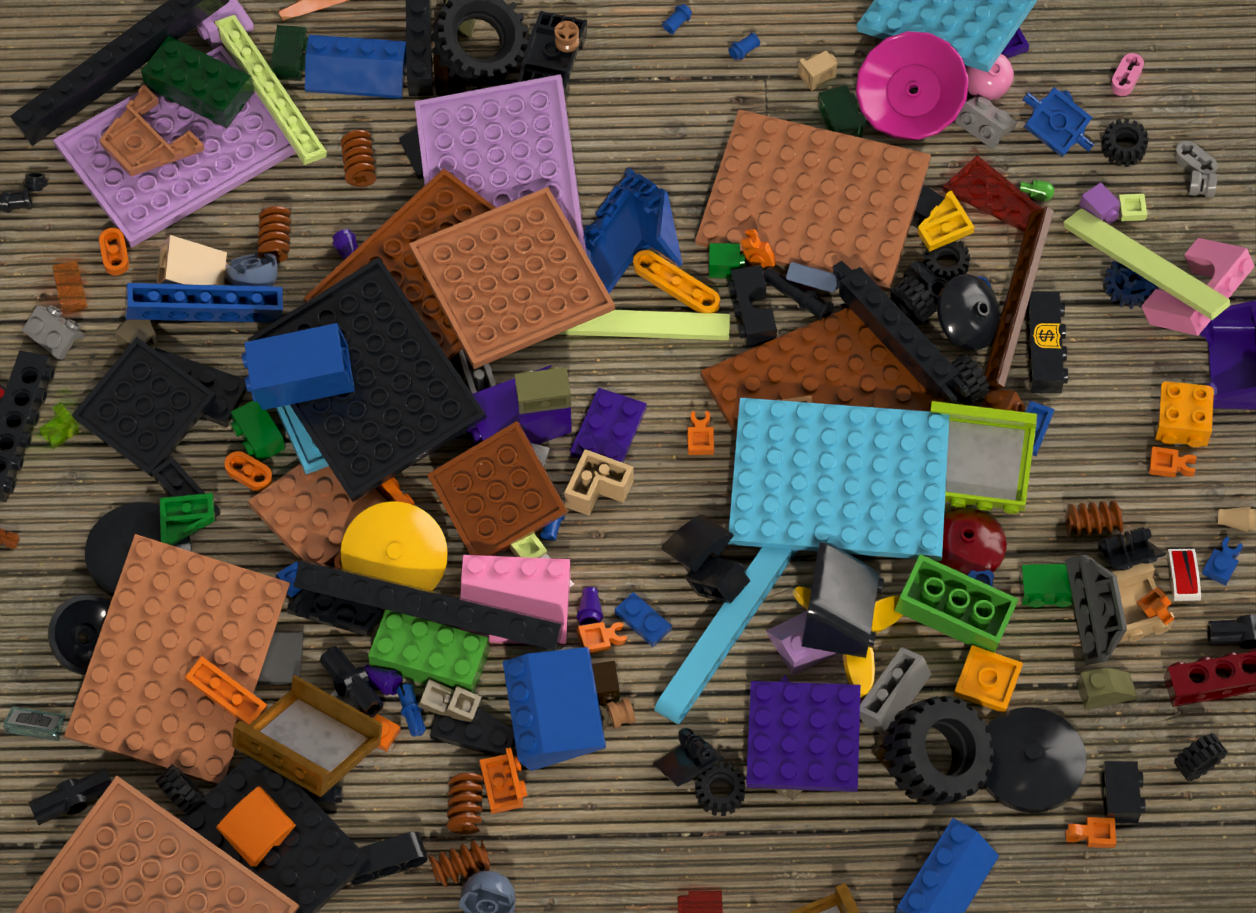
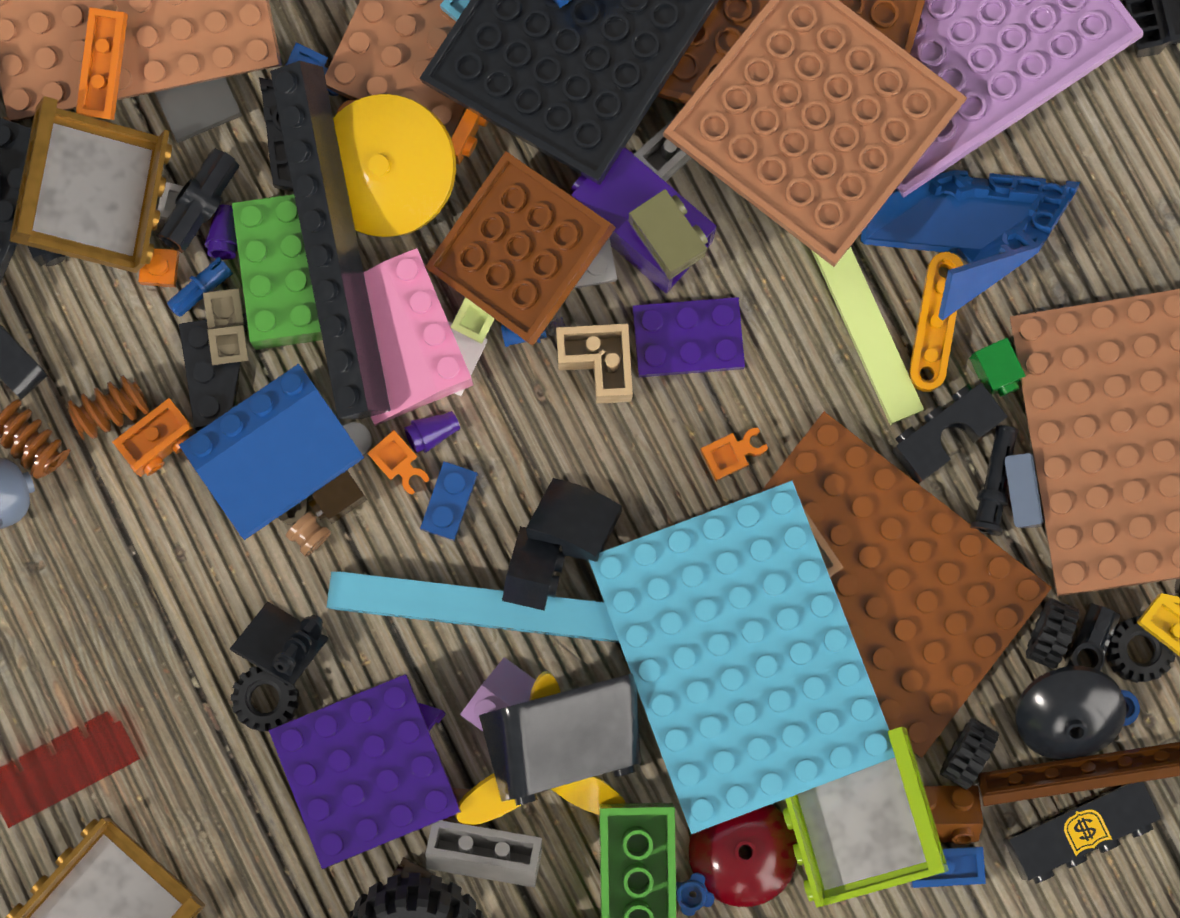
camera: 60 degrees right, 20 degrees up
(756, 251) = (1025, 404): orange plate -> none
(899, 334) = (989, 638): black hinge -> none

